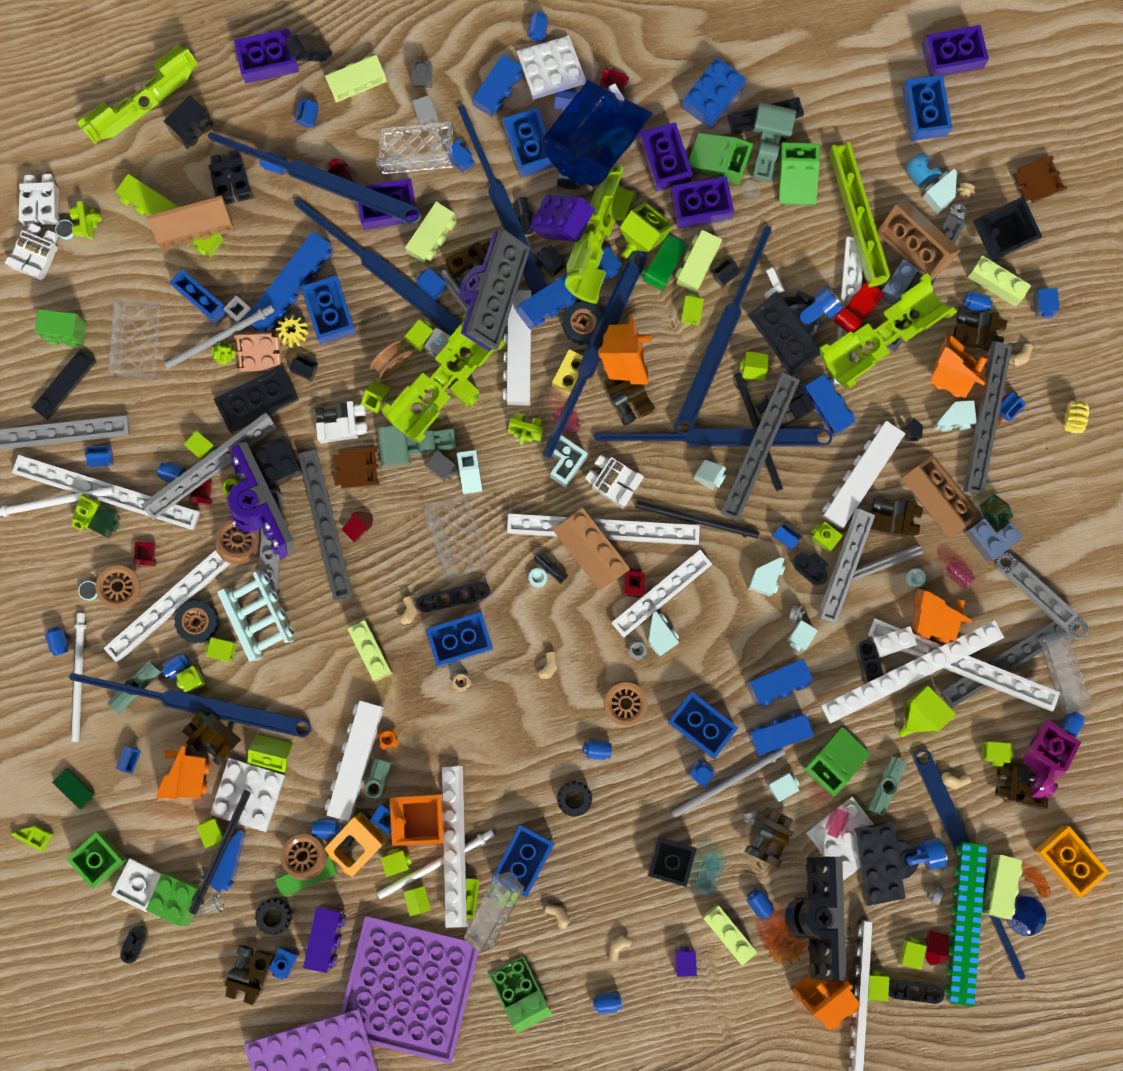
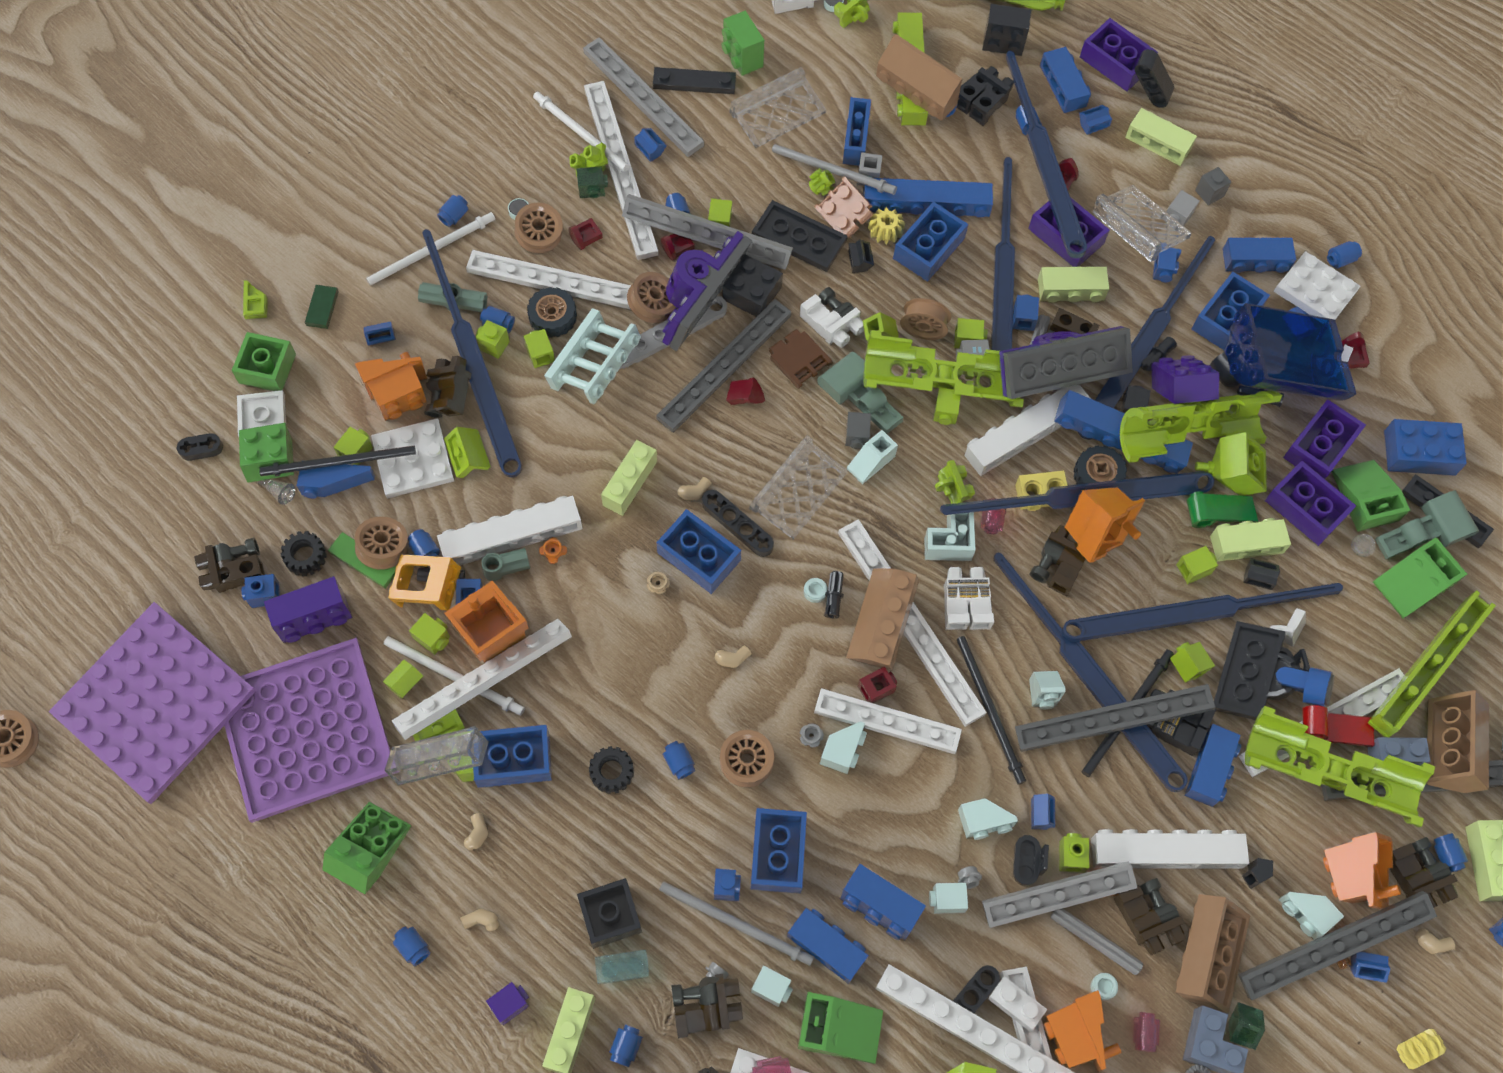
camera: 55 degrees right, 15 degrees down
(259, 109) = (1065, 79): none -> blue brick

